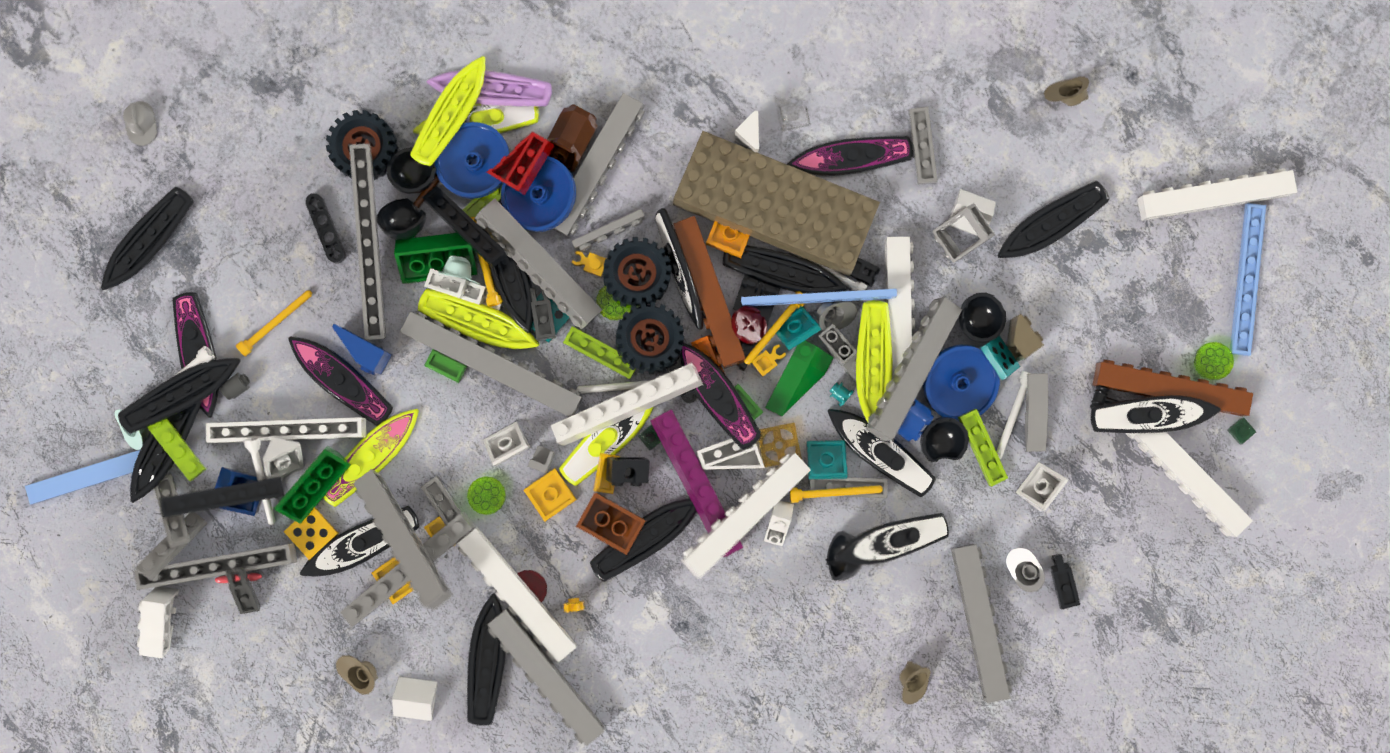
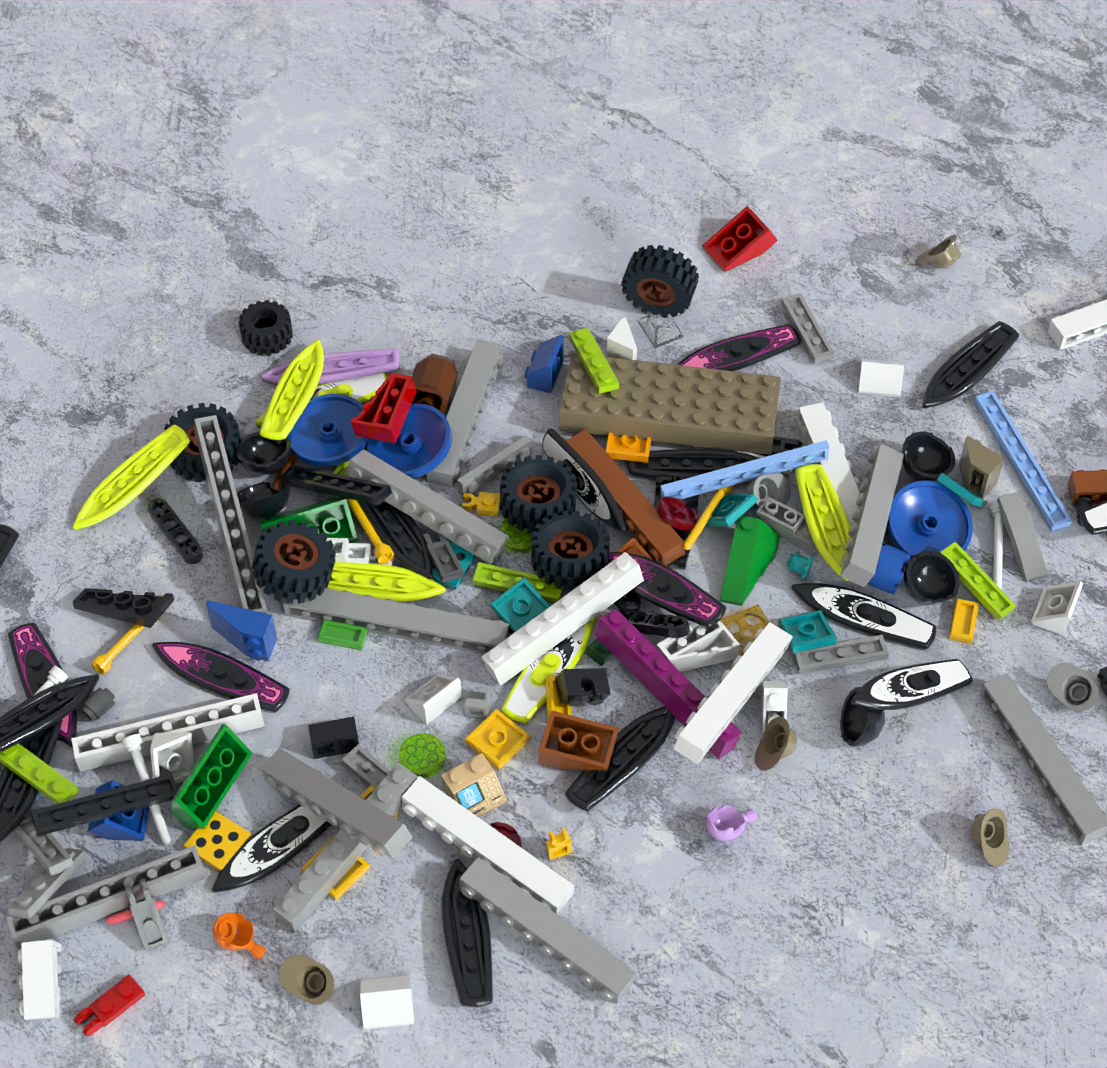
camera: 15 degrees left, 30 degrees down
(209, 650) = (110, 1005): none -> red hinge
(276, 302) = (124, 606): none -> black wing
(295, 172) = (132, 477): none -> neon yellow piece
(309, 620) = (236, 933): none -> orange hair
(373, 453) = (281, 730): neon yellow piece -> none
(418, 463) = (333, 737): none -> black hinge
(420, 323) = (293, 576): none -> black wheel
(435, 16) = (265, 315): none -> black tyre
(458, 267) = (339, 527): light aqua piece -> none
(519, 538) = (474, 786): none -> tan slope
(596, 380) = (519, 605): none -> teal tile
(677, 134) = (546, 365): none -> blue slope
(698, 425) = (670, 626): none -> black beam
(711, 619) = (727, 822): none -> lavender hair
(718, 148) = (593, 360): none -> lime plate
(766, 362) = (707, 553): yellow plate -> none
(768, 559) = (776, 744): none -> dark tan piece
(797, 494) = (785, 670): yellow piece -> none
(800, 74) = (660, 281): none -> black wheel
(890, 32) = (740, 240): none -> red slope
(960, 478) = (963, 621): none -> yellow tile
(977, 222) = (864, 376): light grey window -> none
(1065, 330) = (1022, 461): none -> light blue tile

